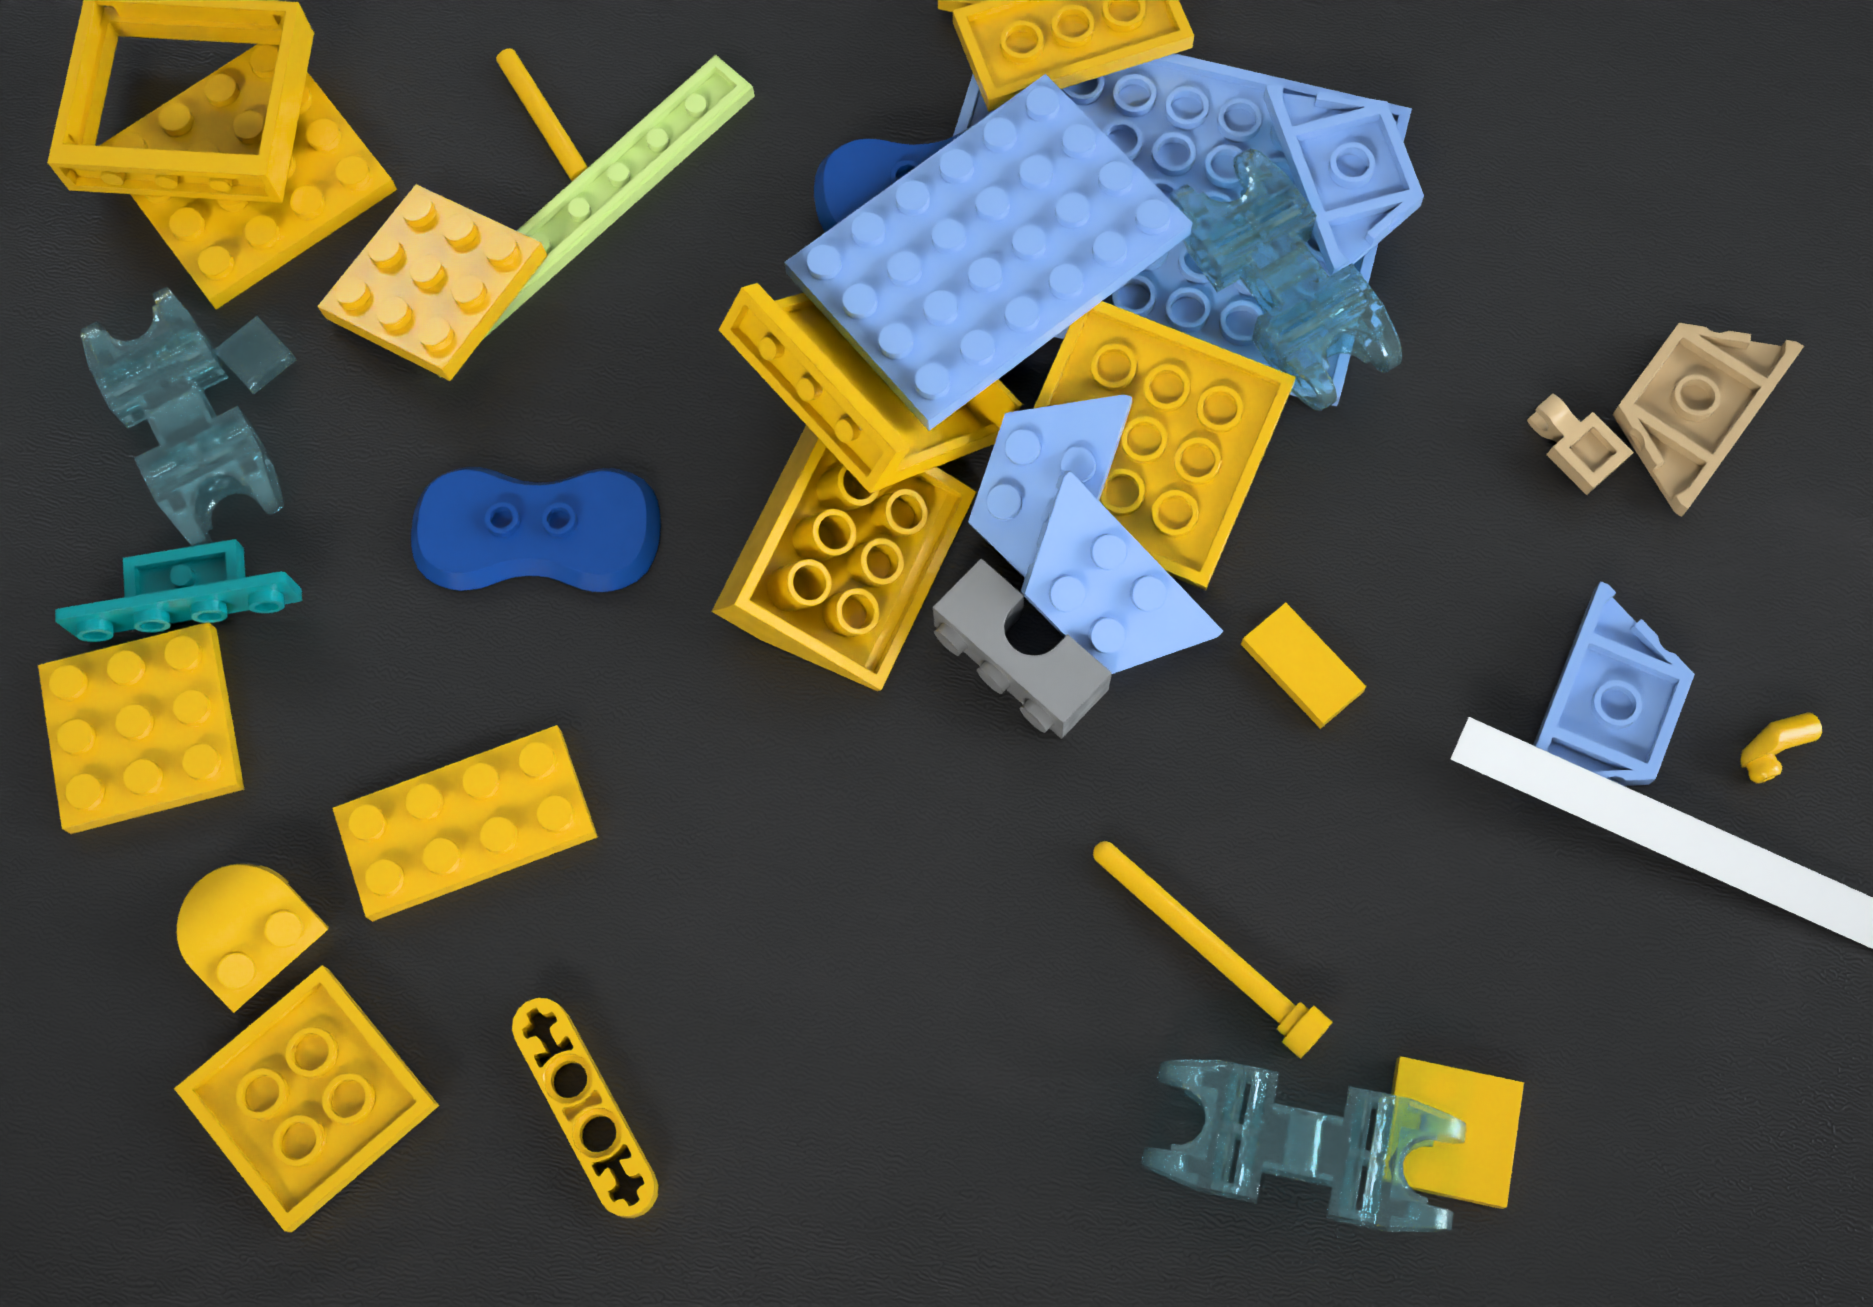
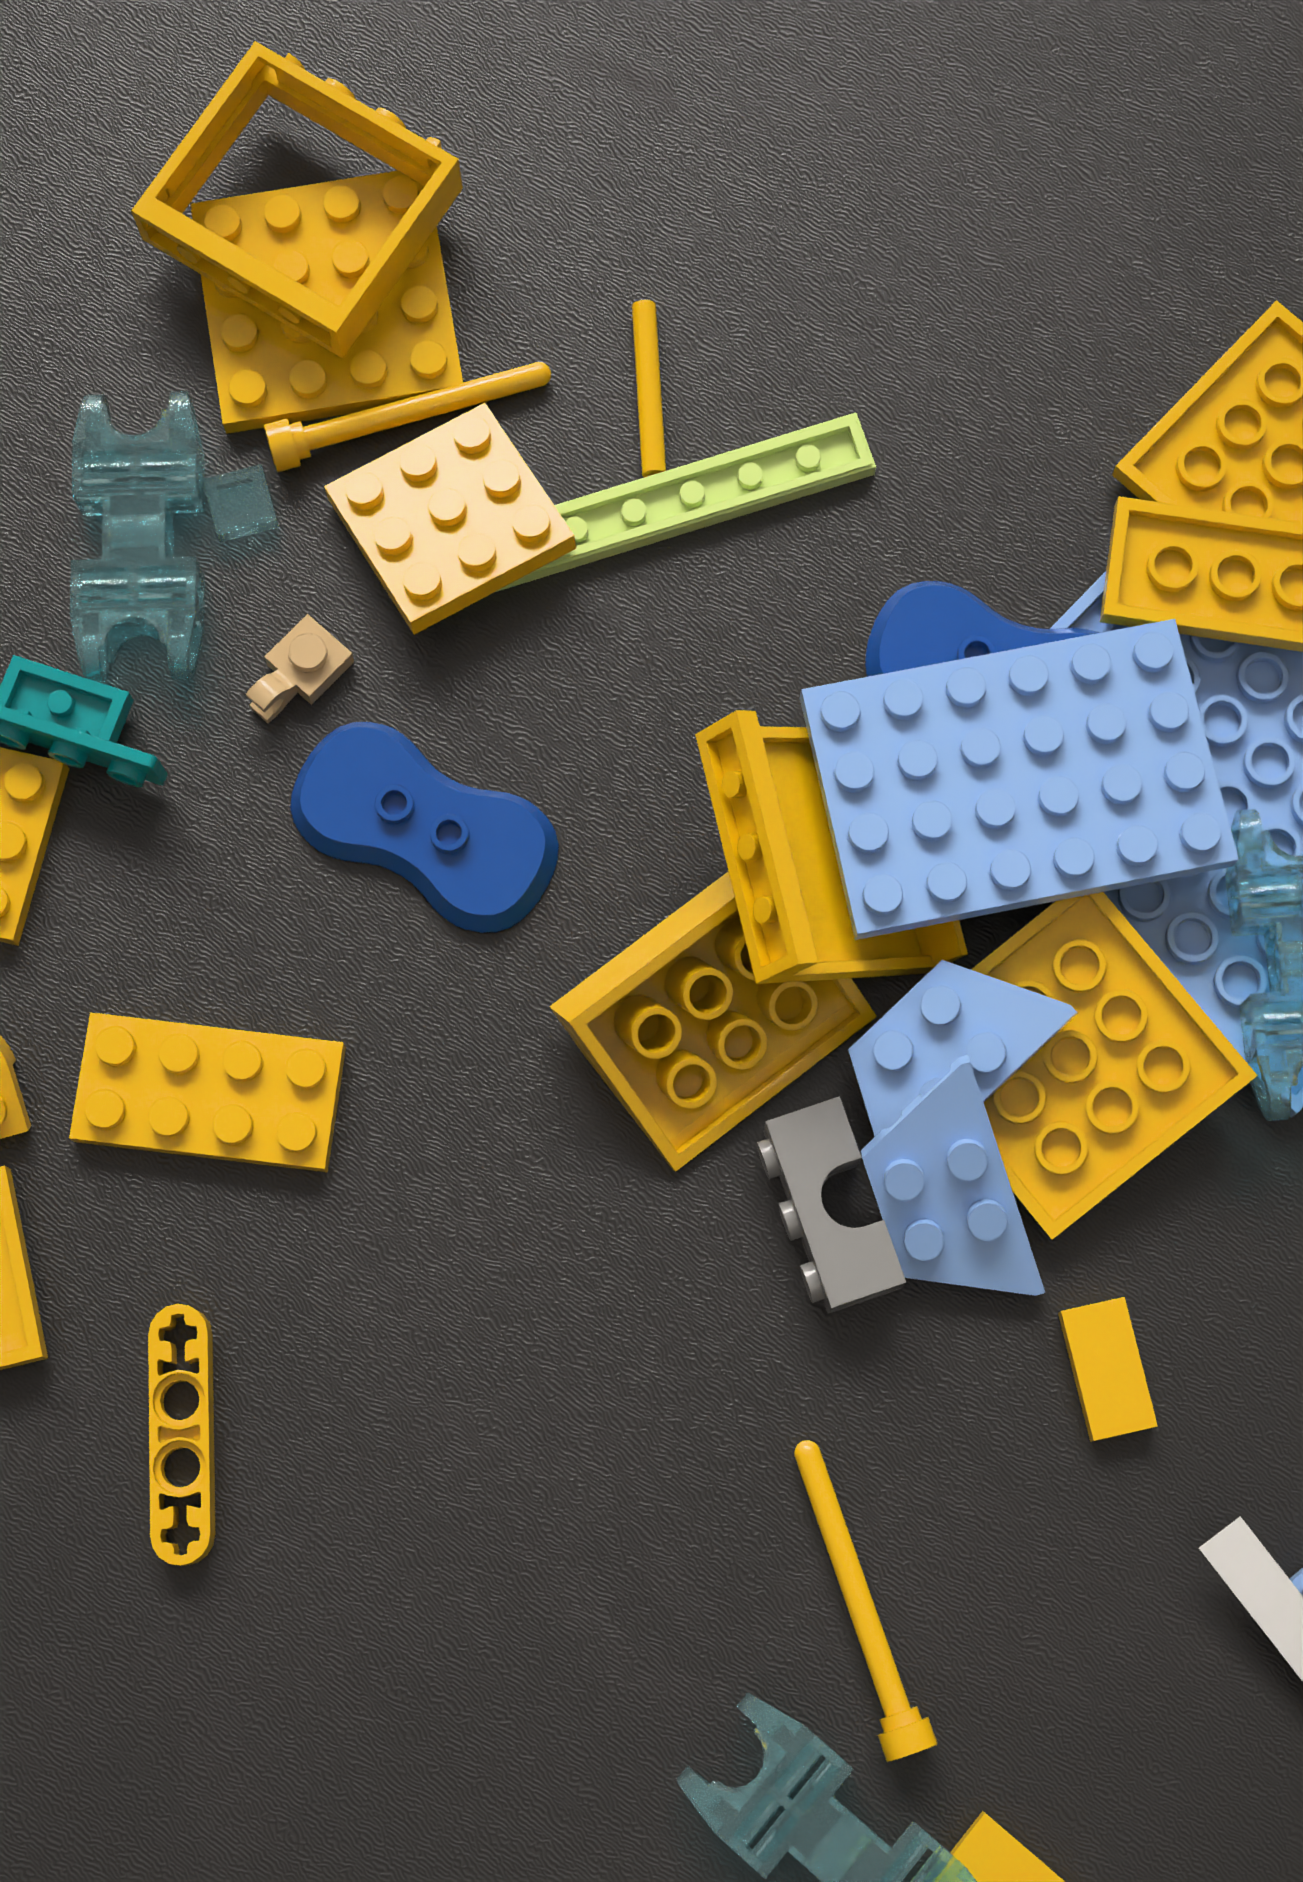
camera: 25 degrees right, 5 degrees up
(275, 286) = (294, 442): none -> yellow piece
(369, 452) = (302, 663): none -> tan plate

